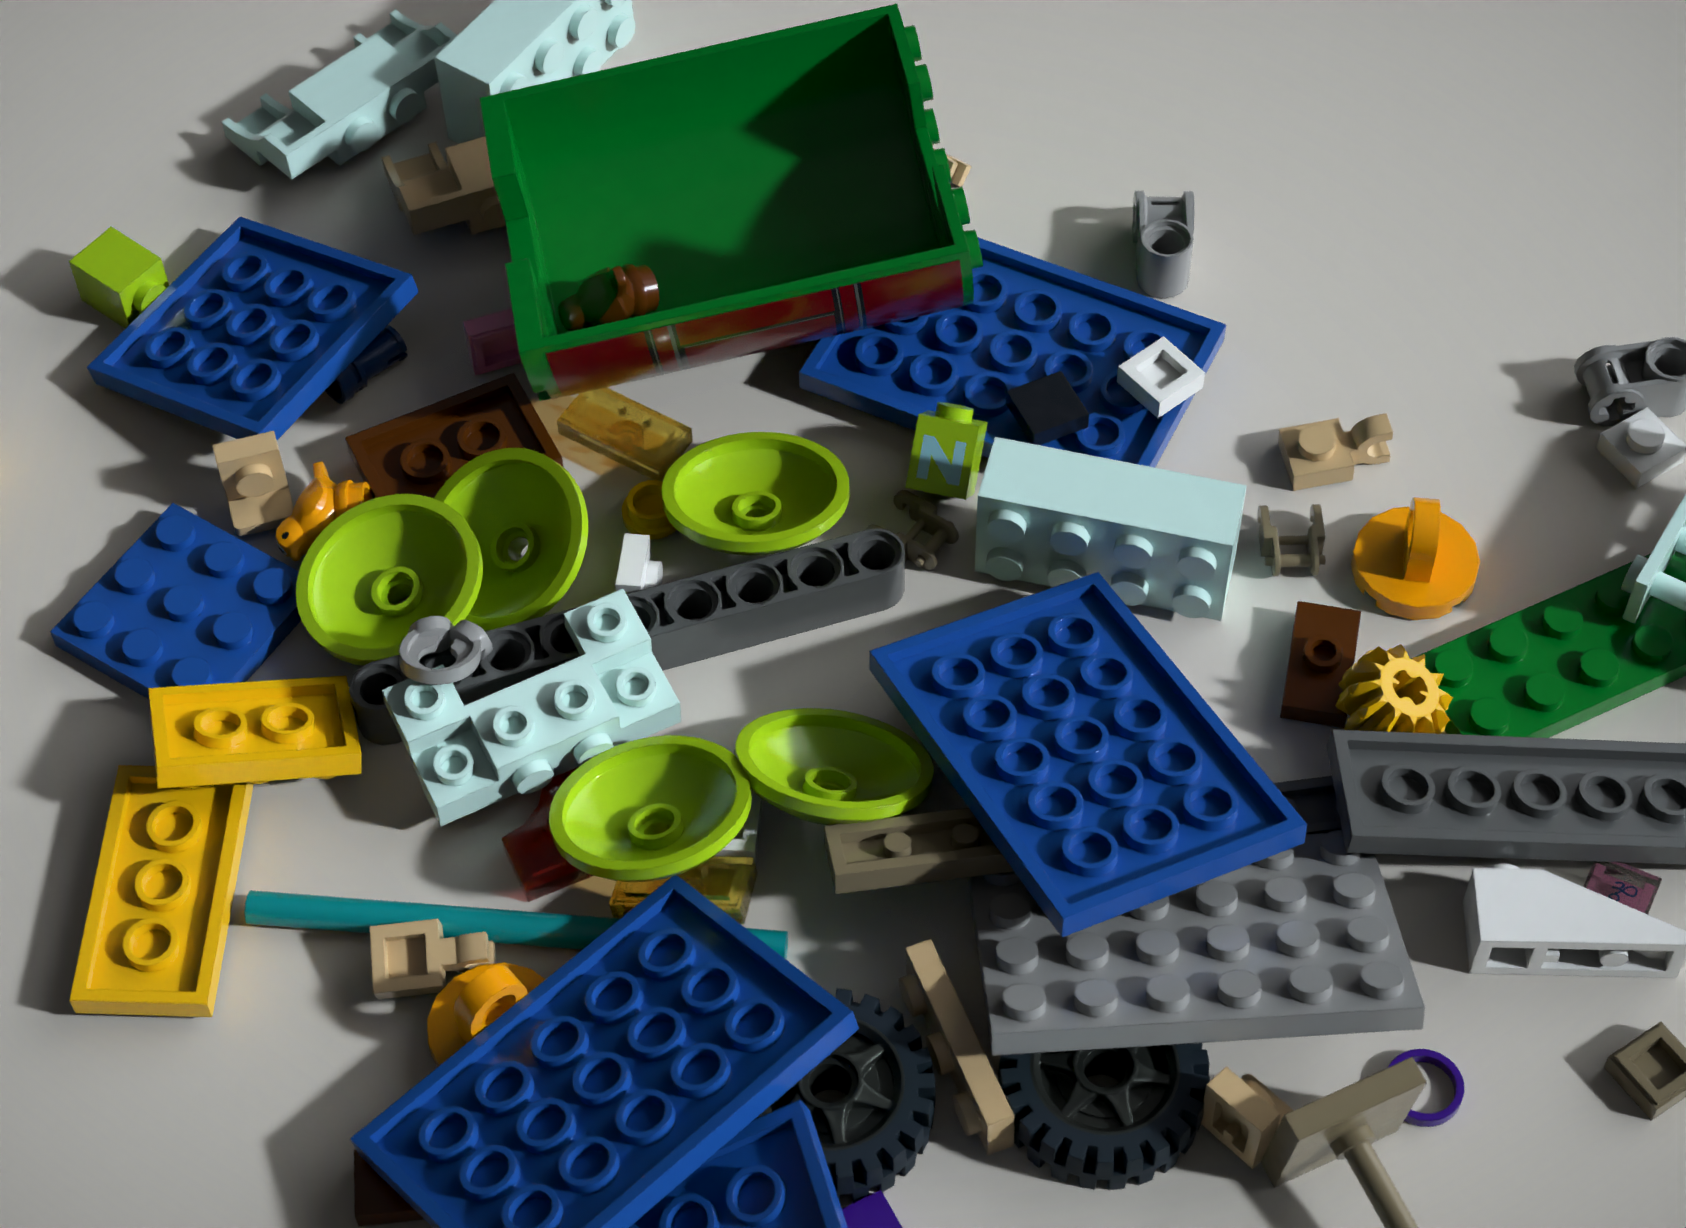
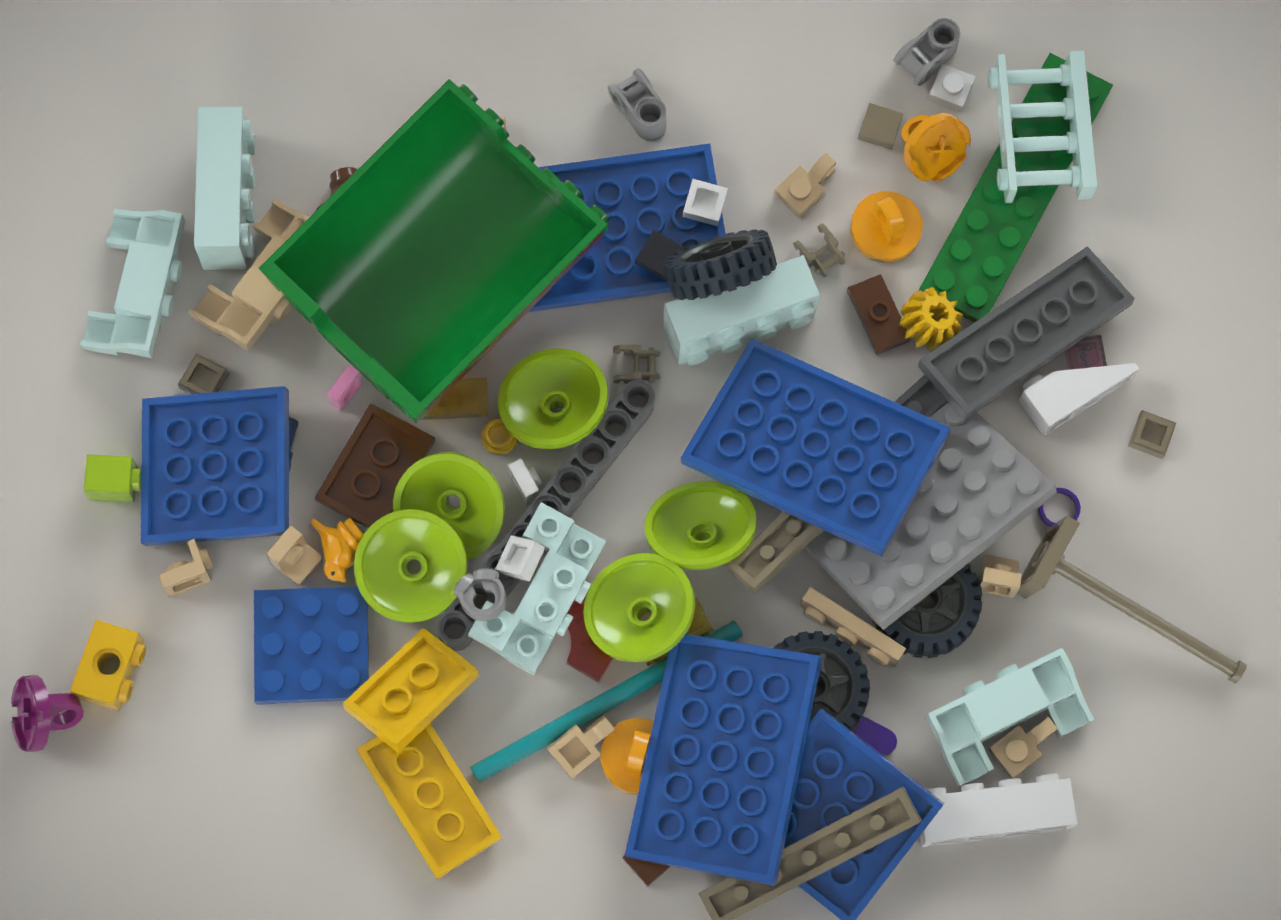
camera: 40 degrees left, 20 degrees up
(111, 436) = (185, 576): none -> tan bracket
(342, 233) = (203, 376): none -> dark tan tile
(536, 643) = (520, 558): none -> white plate
(610, 297) = (390, 329): animal -> none
(946, 451) = (628, 313): lime brick -> none
(1114, 425) = (720, 264): none -> black wheel
(1497, 438) = (880, 126): none -> dark tan tile
(1561, 488) = (934, 145): none -> light orange tile

